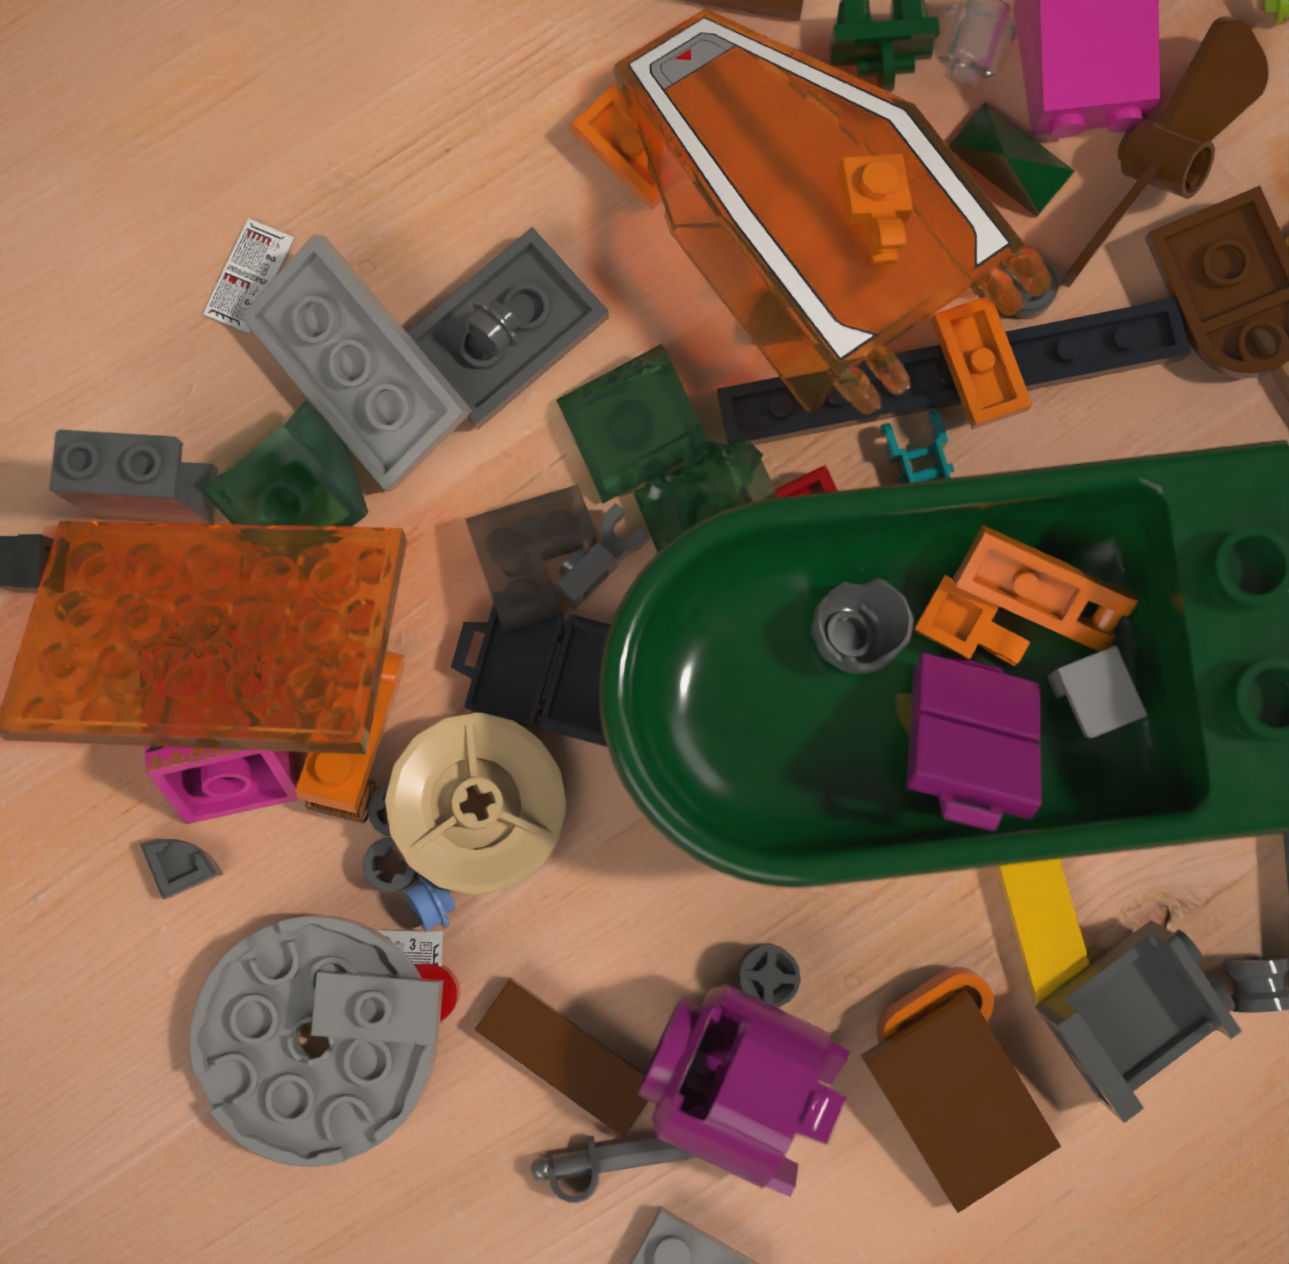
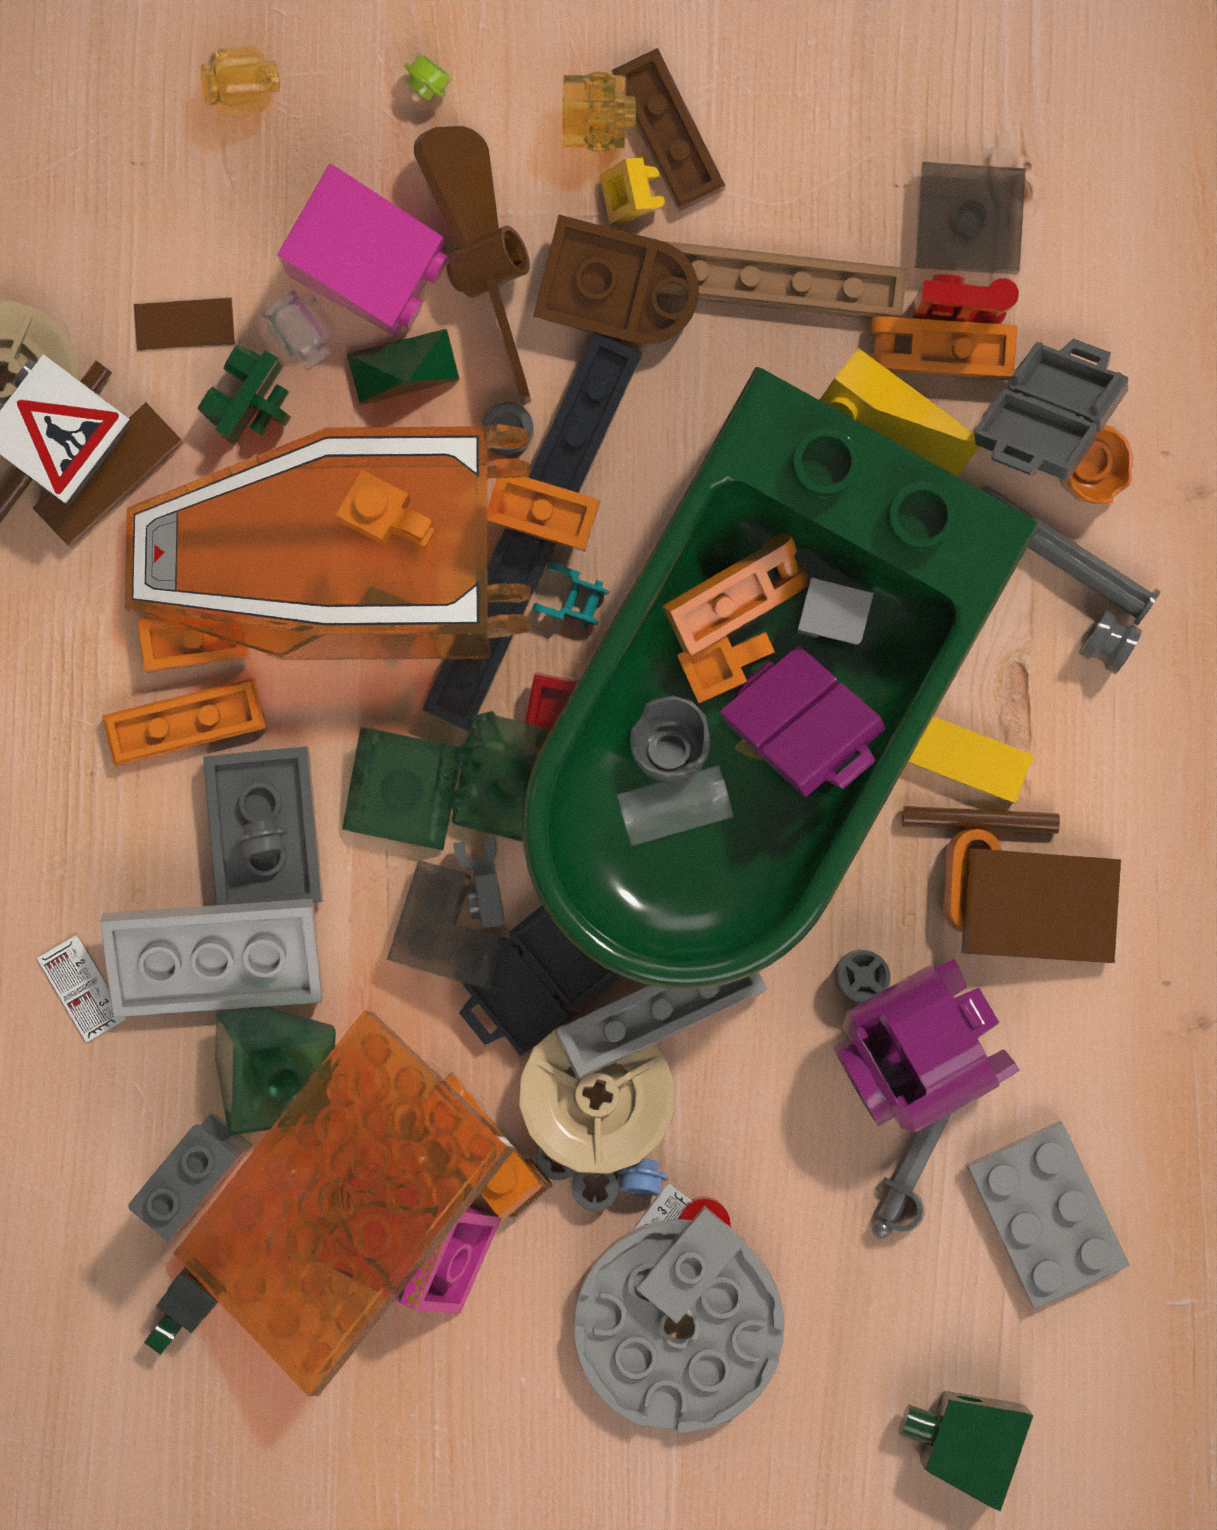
camera: 60 degrees left, 5 degrees up
(178, 865) = (486, 1338): dark grey tile -> none
(552, 194) = (184, 722): none -> orange tile
(564, 1056) = (816, 1158): reddish brown tile -> none
(584, 800) = (646, 1020): none -> light grey plate
(801, 678) = (675, 806): none -> clear hinge
(1002, 988) = (980, 819): none -> reddish brown bar
(1137, 1013) = (1069, 742): dark grey panel -> none

